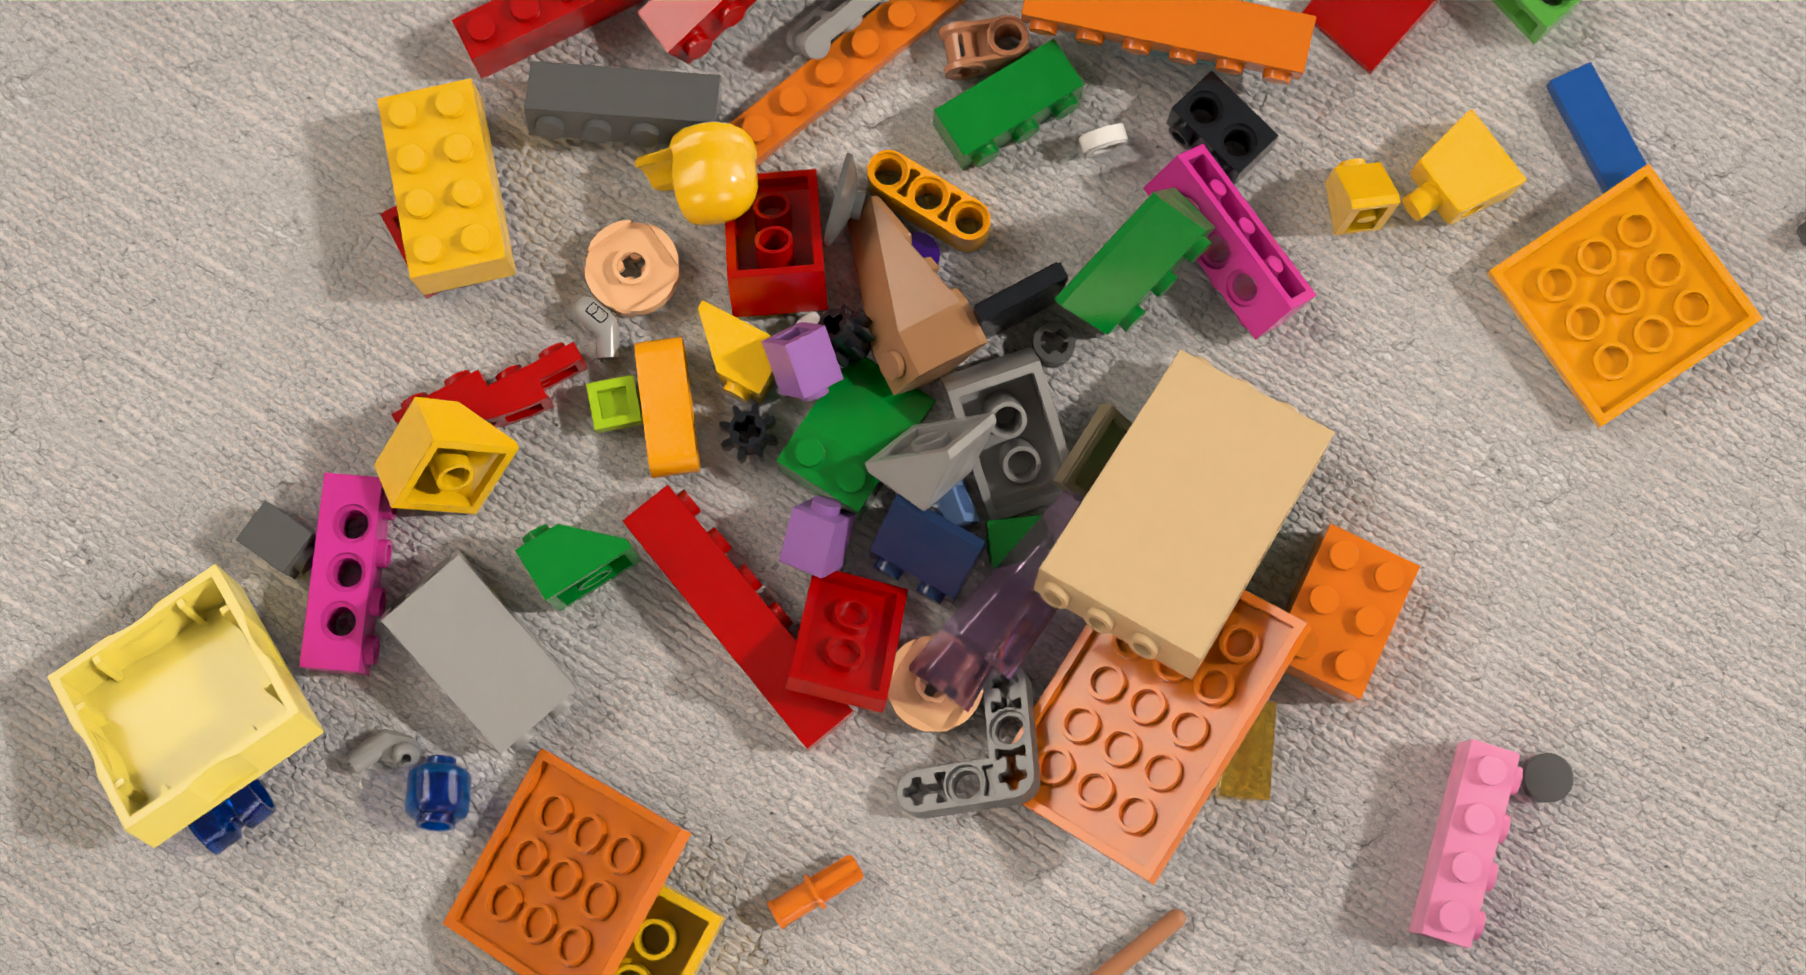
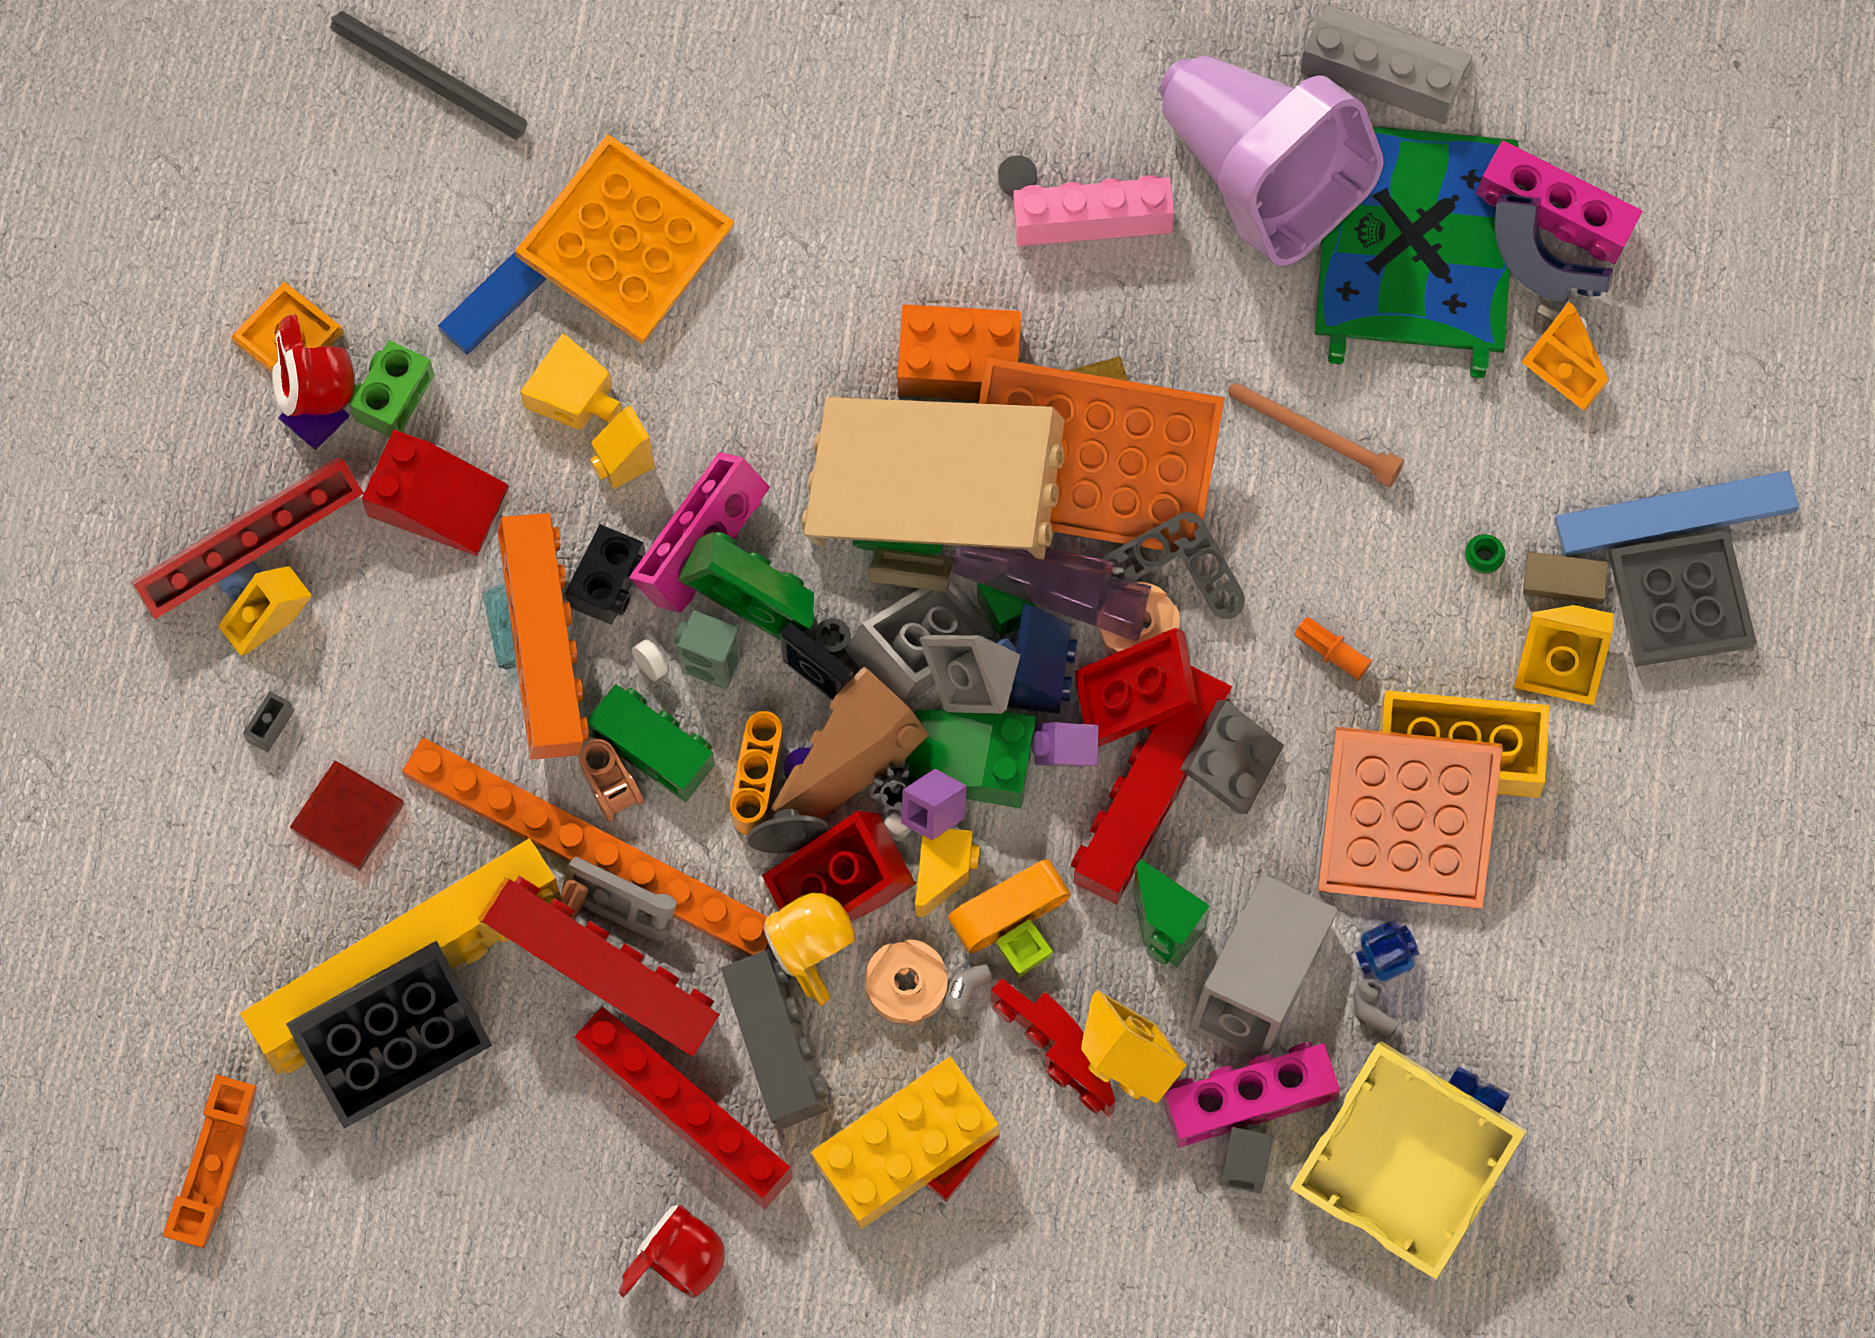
camera: 110 degrees left, 10 degrees down
(729, 715) = (1232, 757): none -> dark grey plate
(755, 444) = (1012, 825): black gear -> none
(1084, 194) = (708, 649): none -> sand green brick

